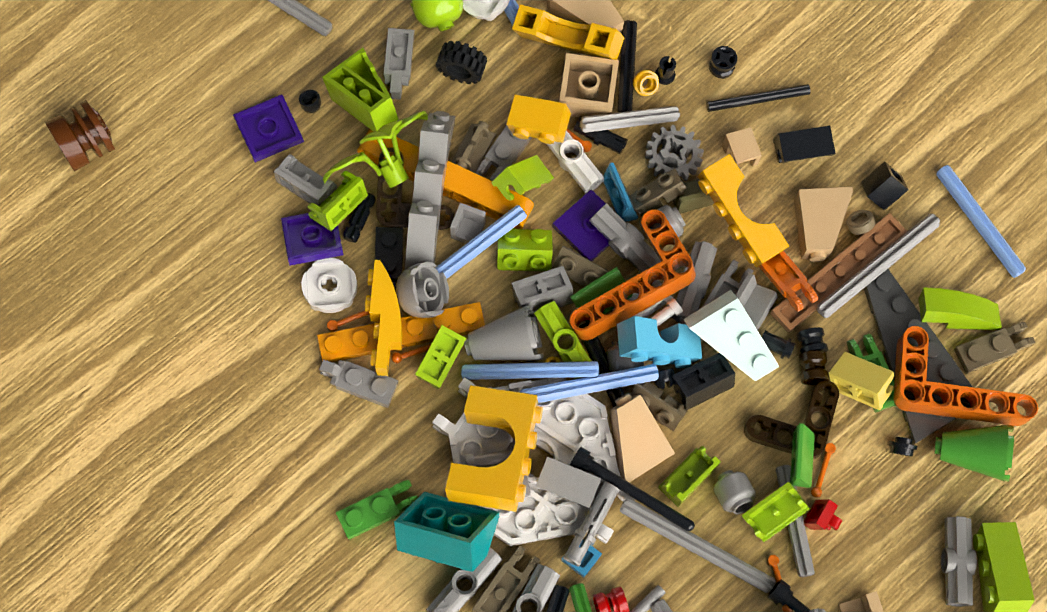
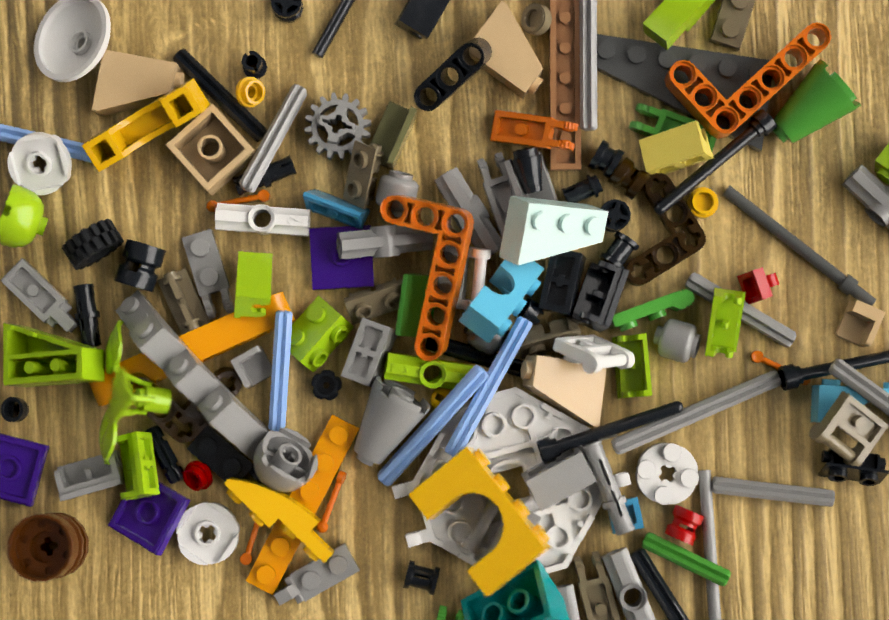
camera: 50 degrees left, 15 degrees up
(236, 187) = (30, 549): none -> reddish brown wheel
(363, 248) = (197, 476): none -> red plate
(412, 96) = (87, 314): none -> black pin
(418, 450) = (415, 570): none -> black bush
(440, 357) = (357, 493): lime hinge -> none
(472, 103) = (141, 254): none -> black wheel
(496, 276) = (334, 385): none -> black plate
(538, 119) = (209, 224): yellow brick -> none
(649, 554) = (684, 477): none -> white plate
(672, 431) = (593, 352): none -> white plate
(717, 411) = (599, 295): none -> black hinge
(740, 456) = (653, 309): none -> bright green hinge
(742, 146) = (383, 61): tan panel -> none
(758, 240) = (407, 115): yellow arch -> none
(759, 292) = (529, 169): none -> black cone
(759, 402) = (619, 250): none -> black bush
(783, 374) = (616, 210): none -> black wheel
(786, 198) = (440, 81): none -> black beam
(802, 456) = (697, 259): bright green slope -> none
(829, 450) = (706, 225): orange hinge -> none
(843, 433) = (702, 202): none -> yellow plate
(880, 580) = (846, 283): none -> dark grey bar
(902, 446) = (756, 164): black plate -> none
(931, 424) = (760, 125): none -> black piece

